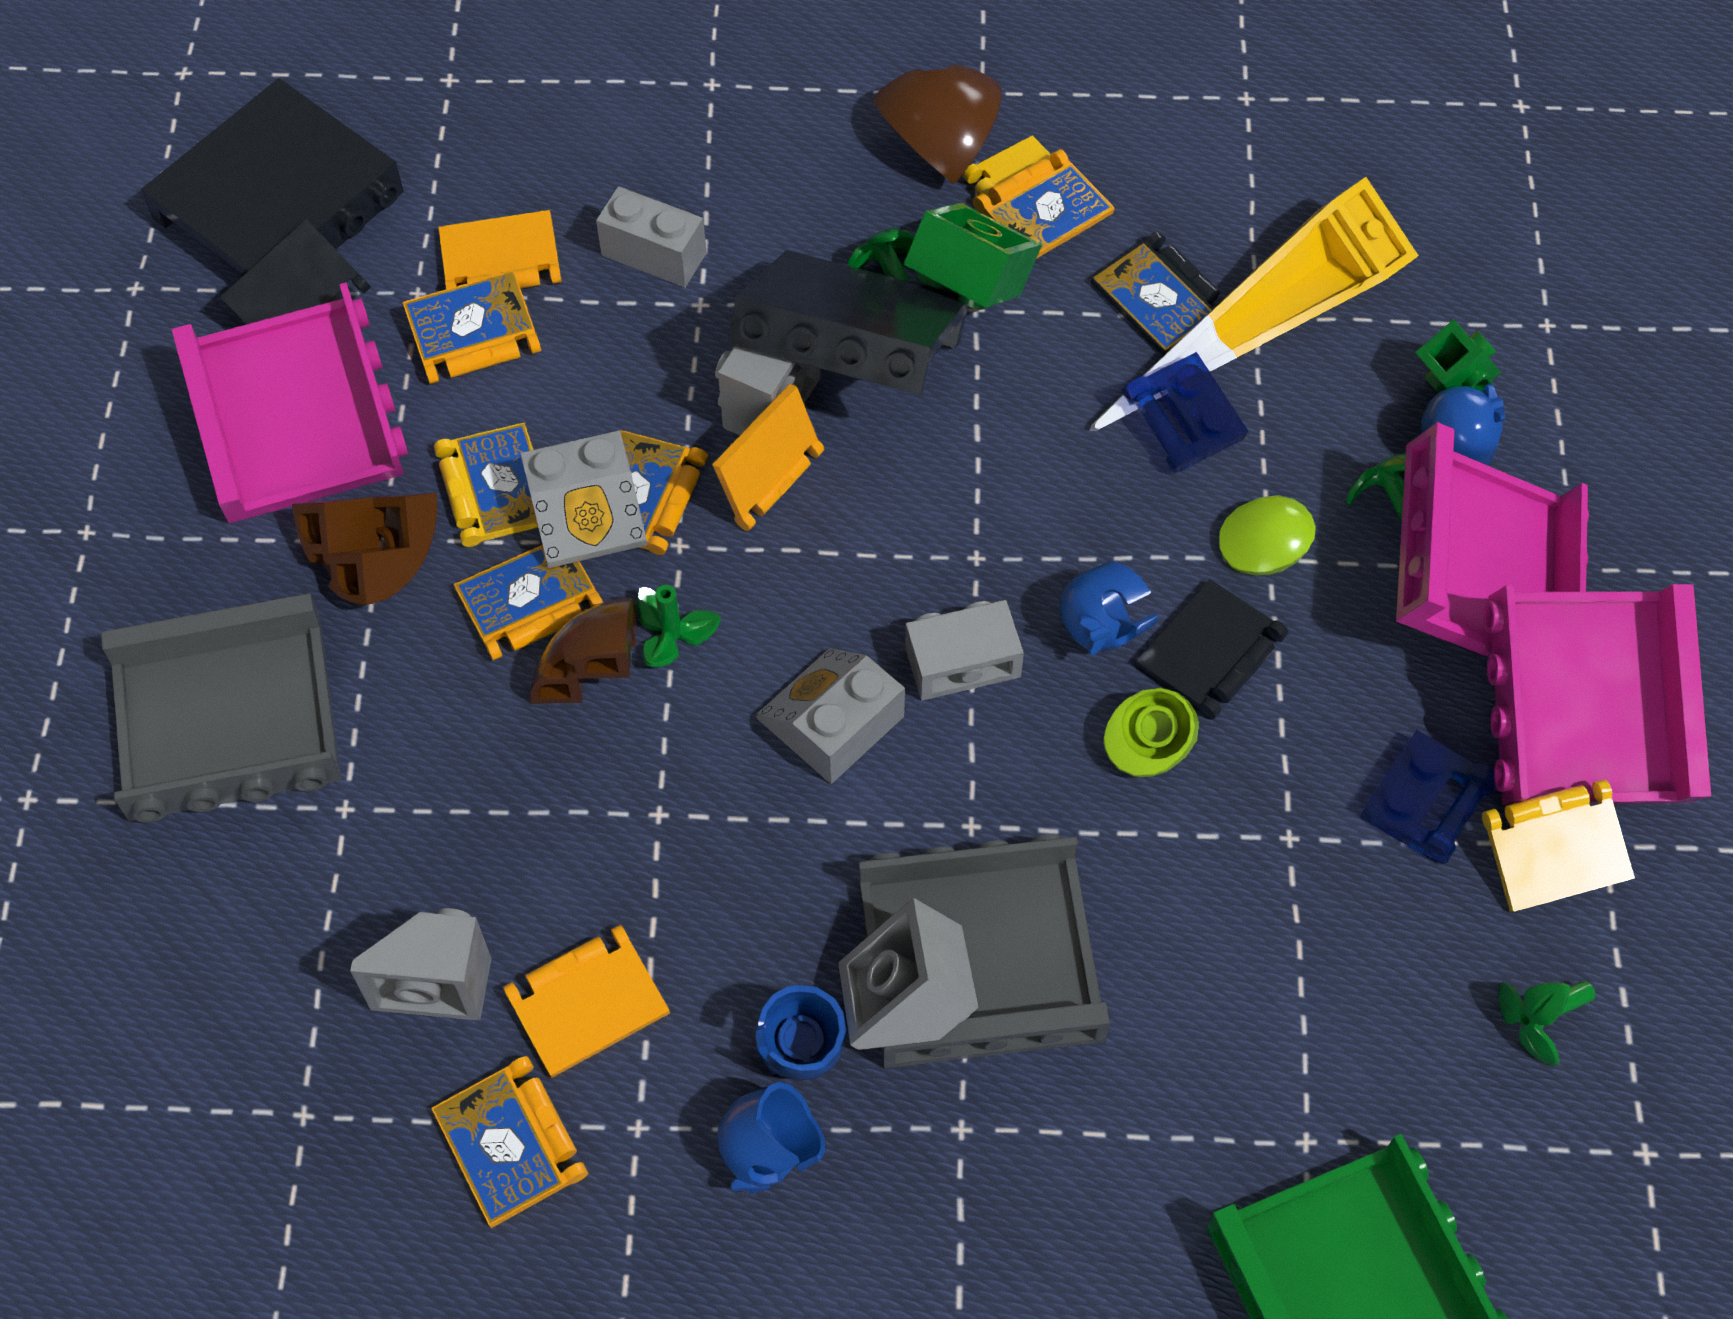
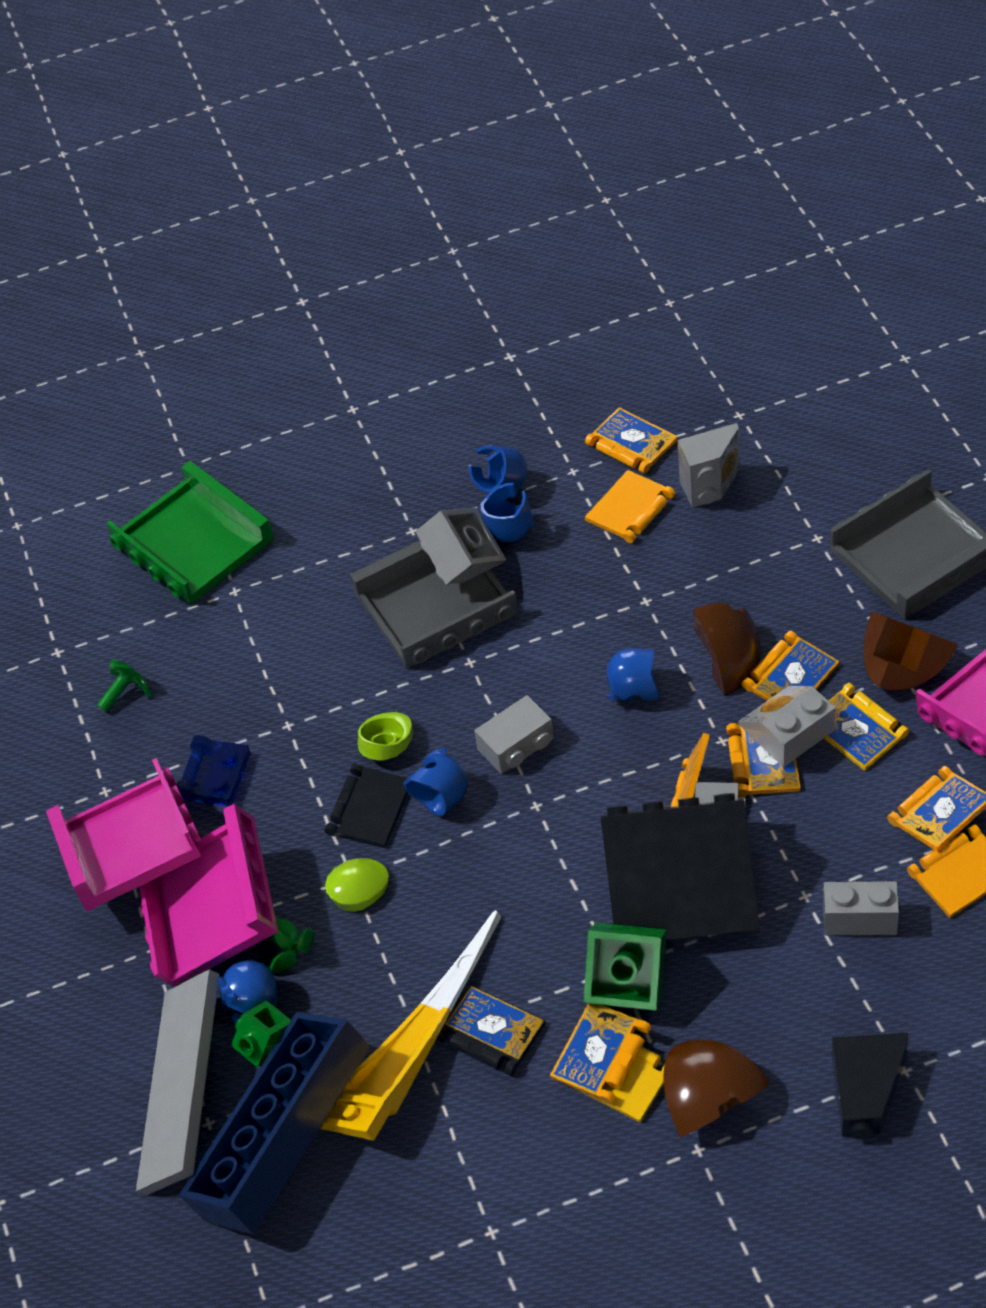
camera: 165 degrees right, 10 degrees down
(660, 613) = (695, 678): green plant -> none
(752, 656) = (632, 674): none -> blue helmet
(761, 68) = (866, 1079): none -> black slope
(835, 711) = (572, 675): light grey slope -> none
(883, 248) = (695, 961): green plant -> none
(1197, 406) = (434, 948): clear blue plate -> none
(1467, 247) = (275, 1122): none -> dark blue brick
(1558, 846) = (130, 767): piece -> none
(1579, 352) = (178, 1083): none -> light grey tile

